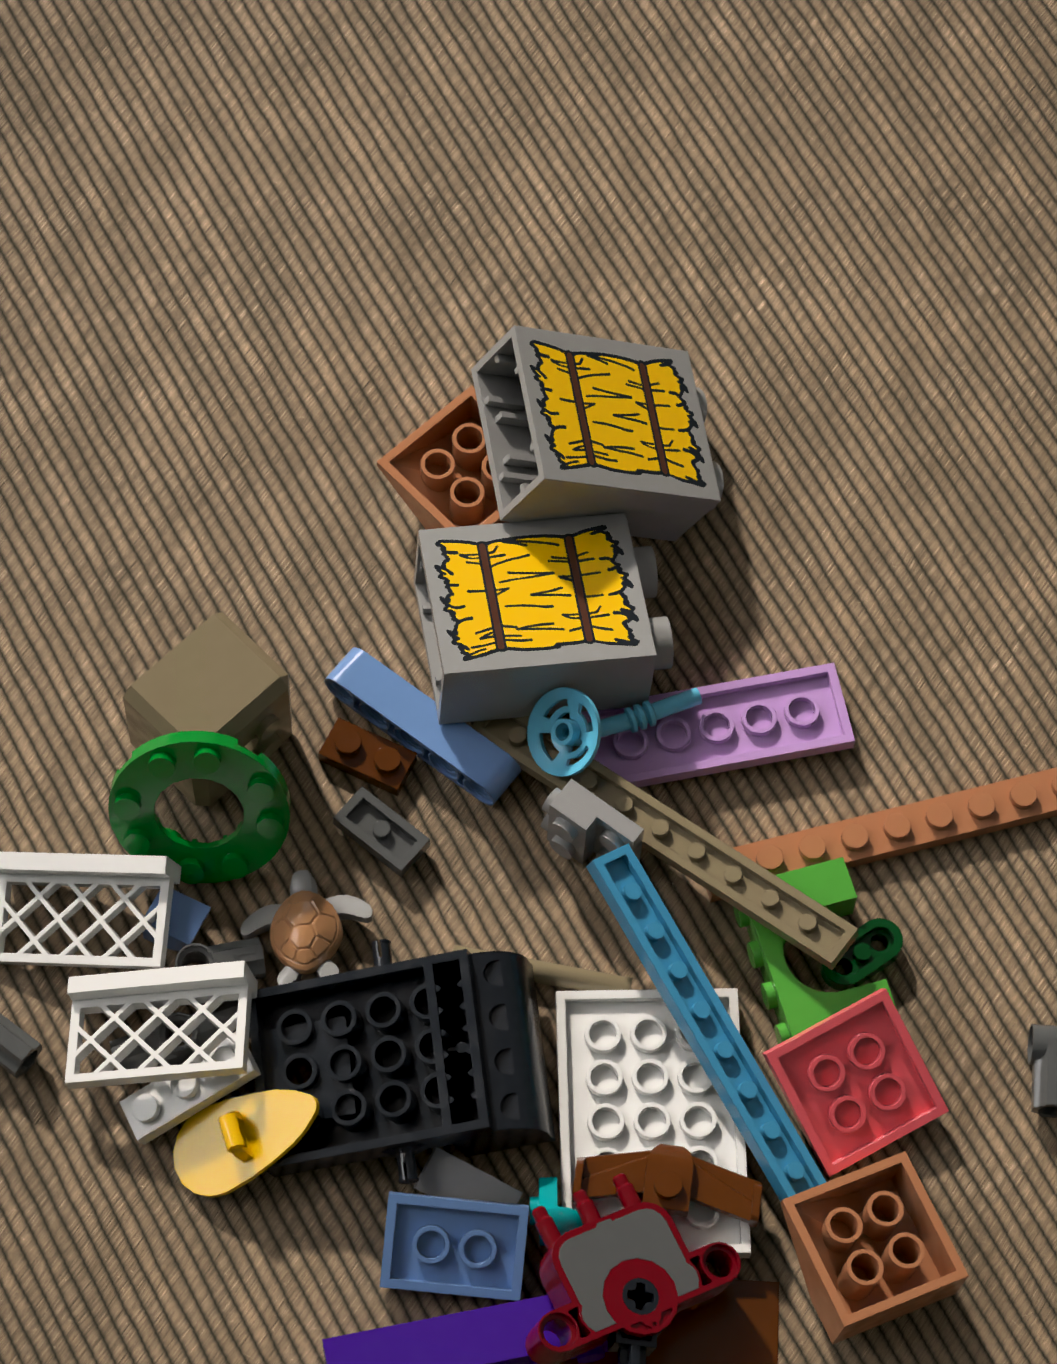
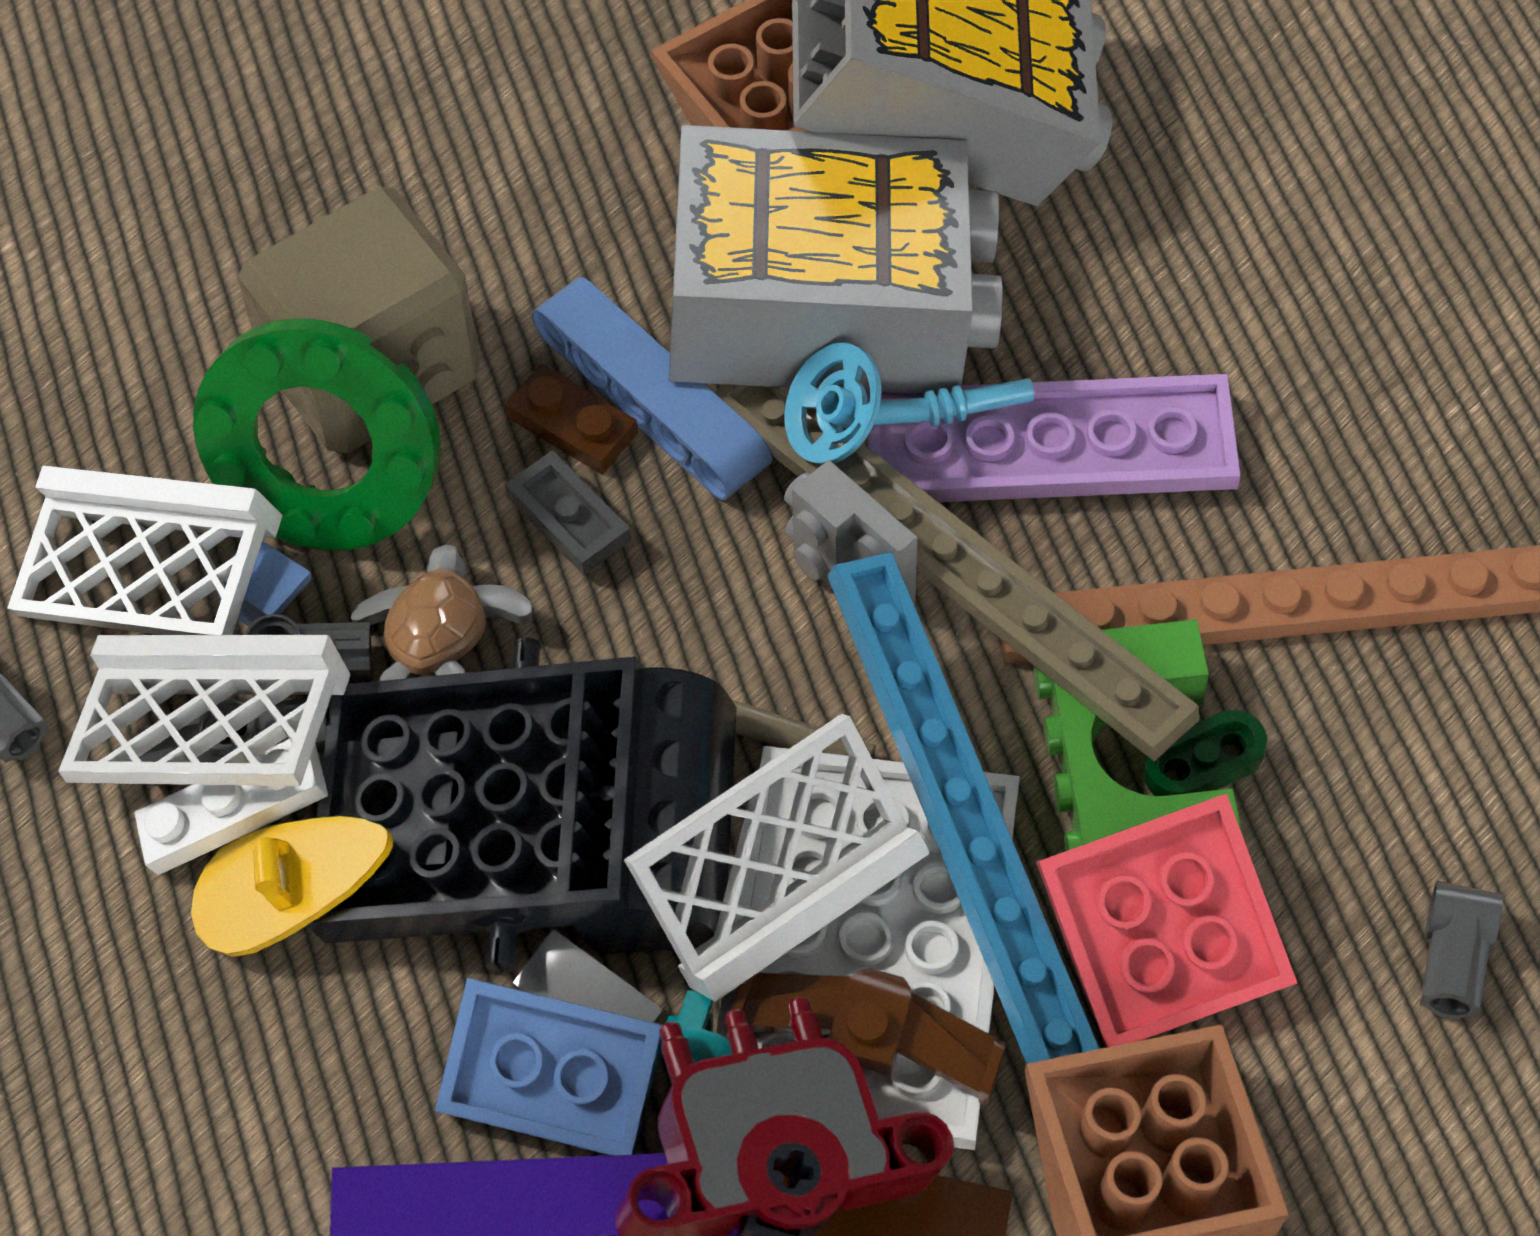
camera: 15 degrees right, 5 degrees down
(603, 1109) = (791, 910): none -> white fence

